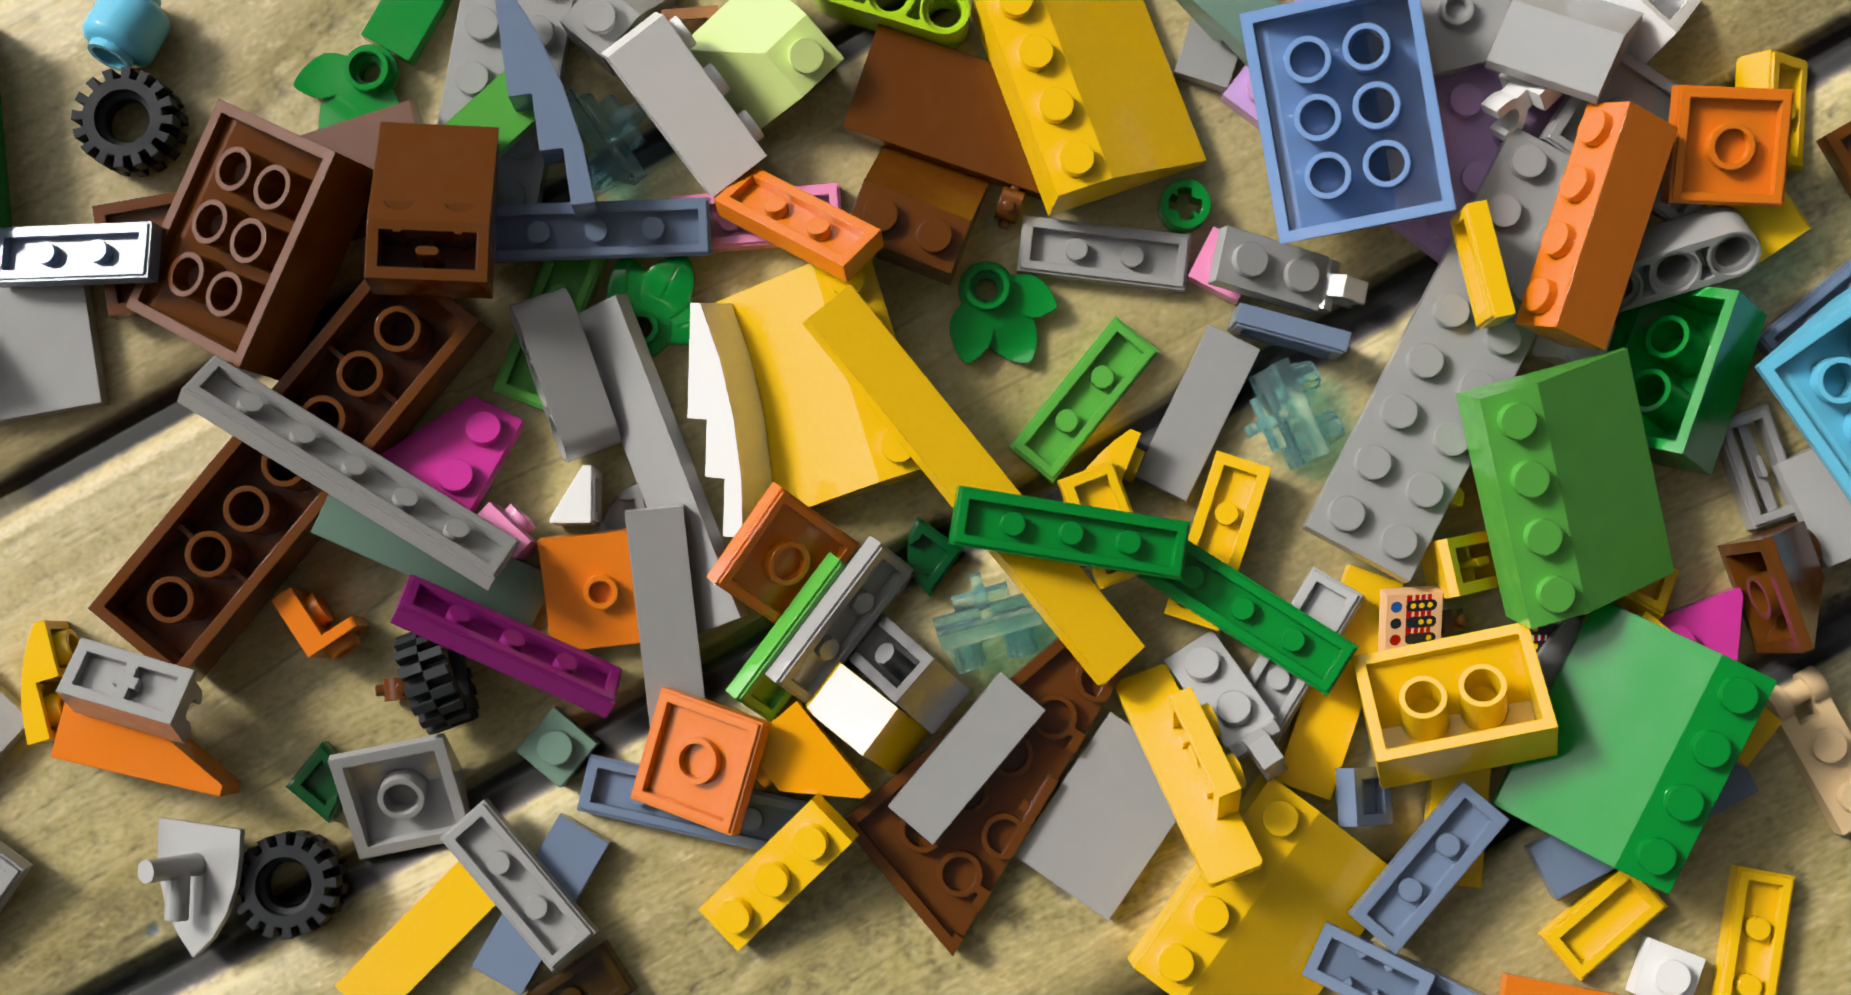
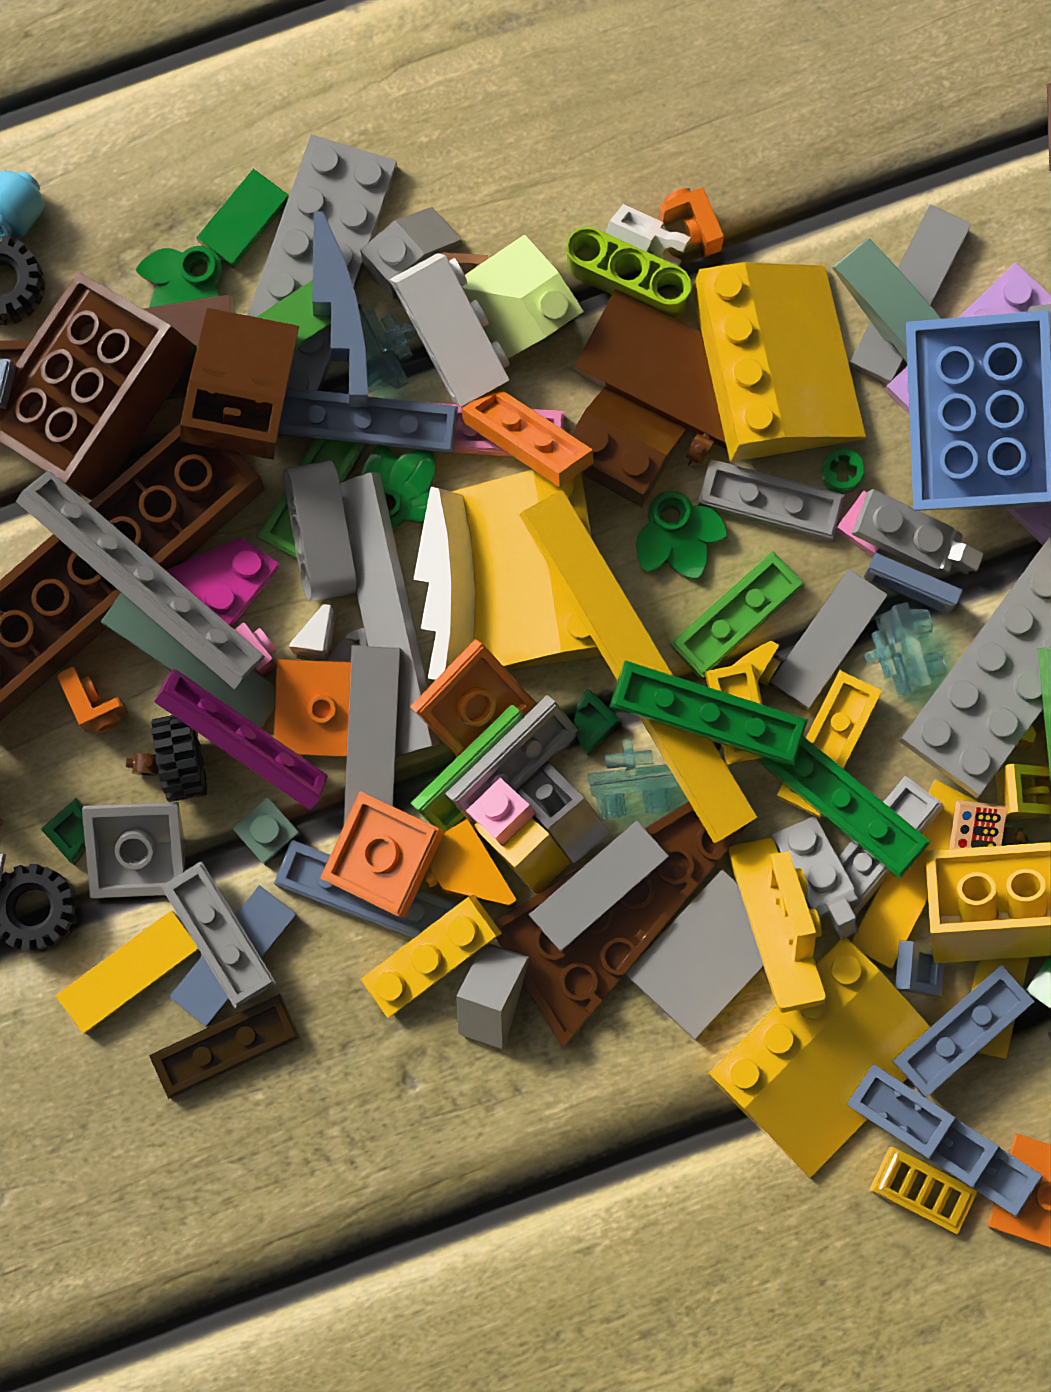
camera: 10 degrees right, 5 degrees down
(835, 688) = (501, 812): none -> bright pink plate
(857, 906) = (491, 995): none -> light grey slope

